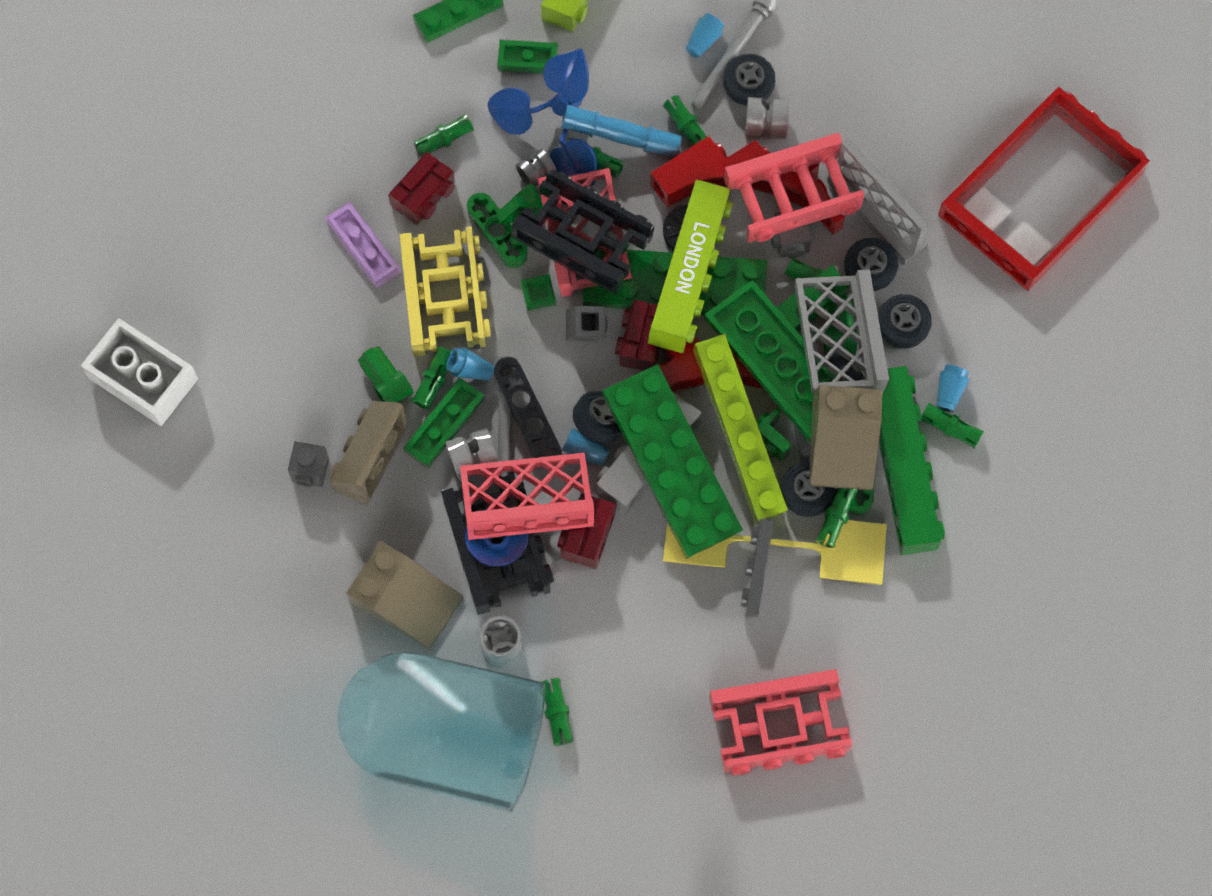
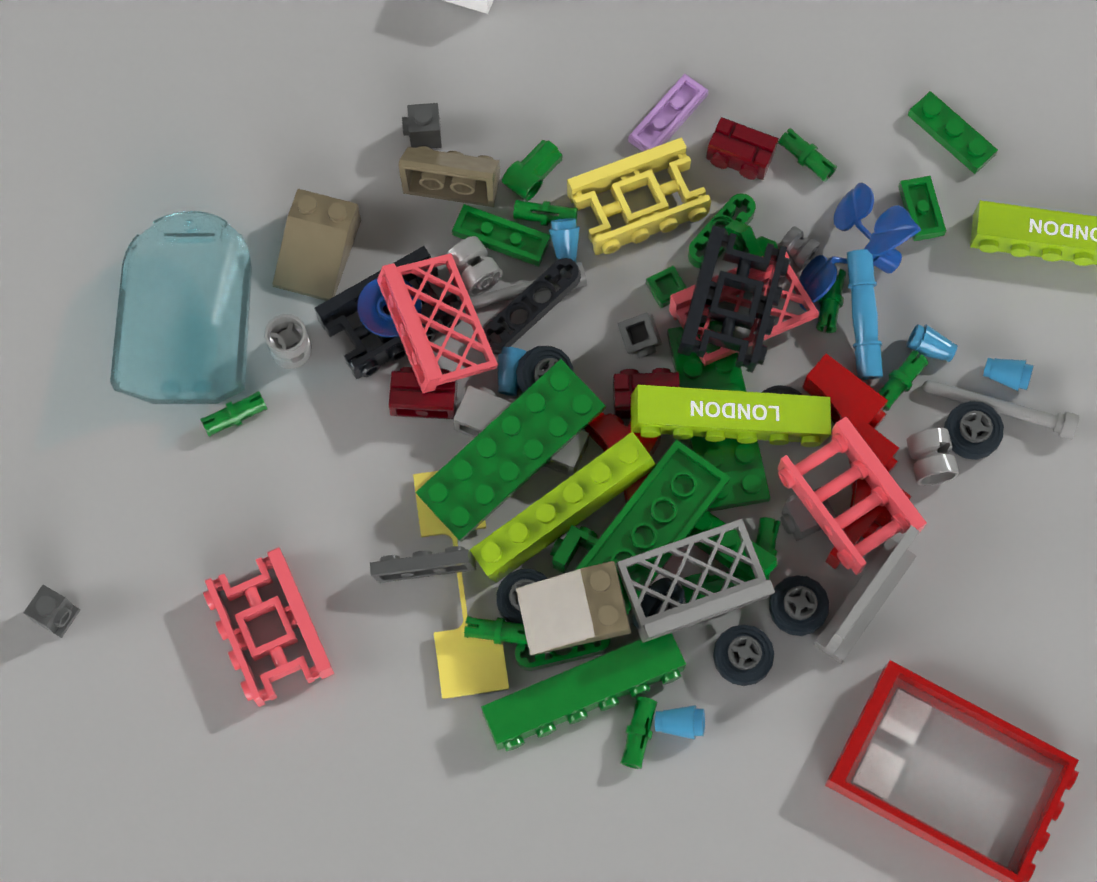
camera: 75 degrees right, 0 degrees up
(659, 89) = (931, 343): none -> dark azure cone

